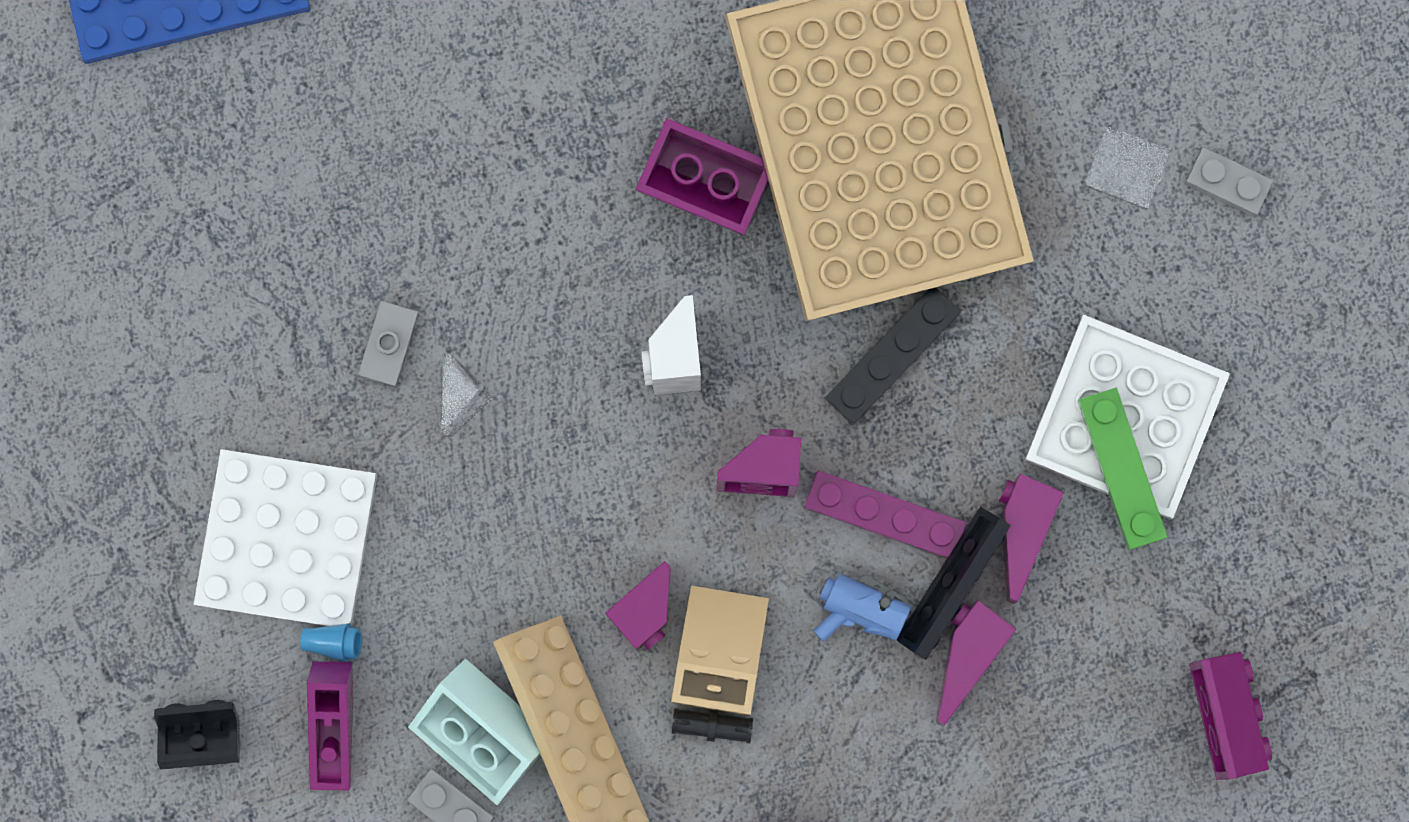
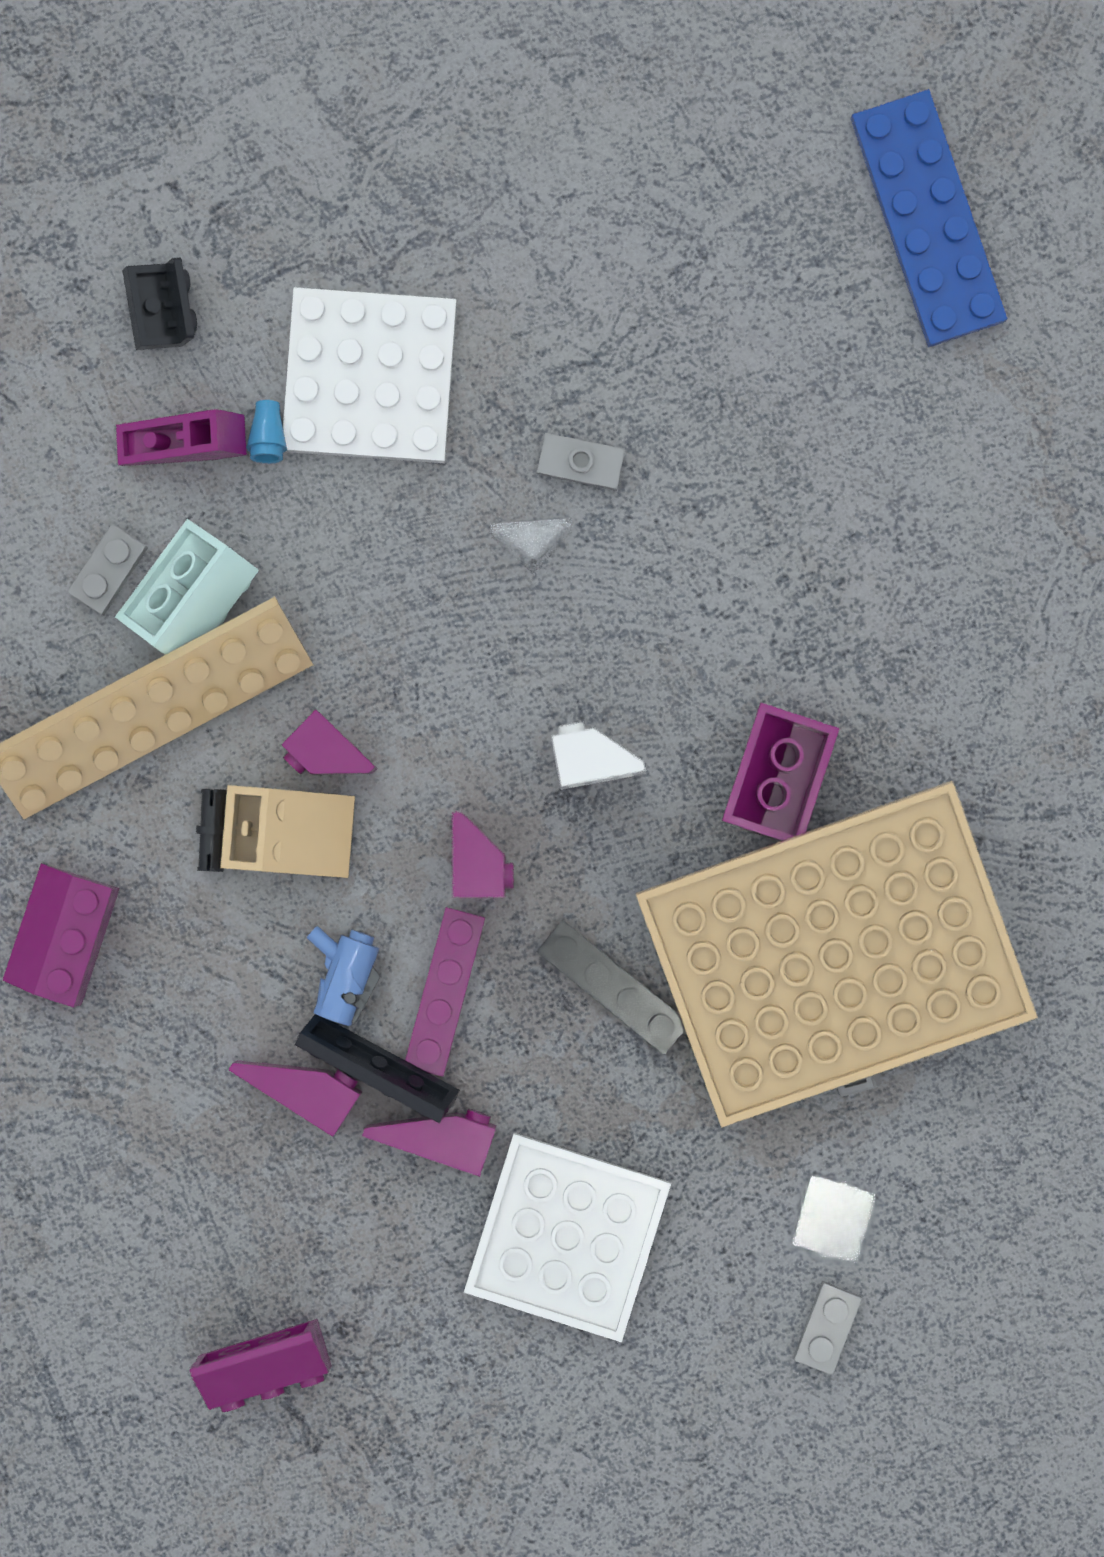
camera: 80 degrees right, 5 degrees up
(1122, 469) = (510, 1236): bright green plate -> none

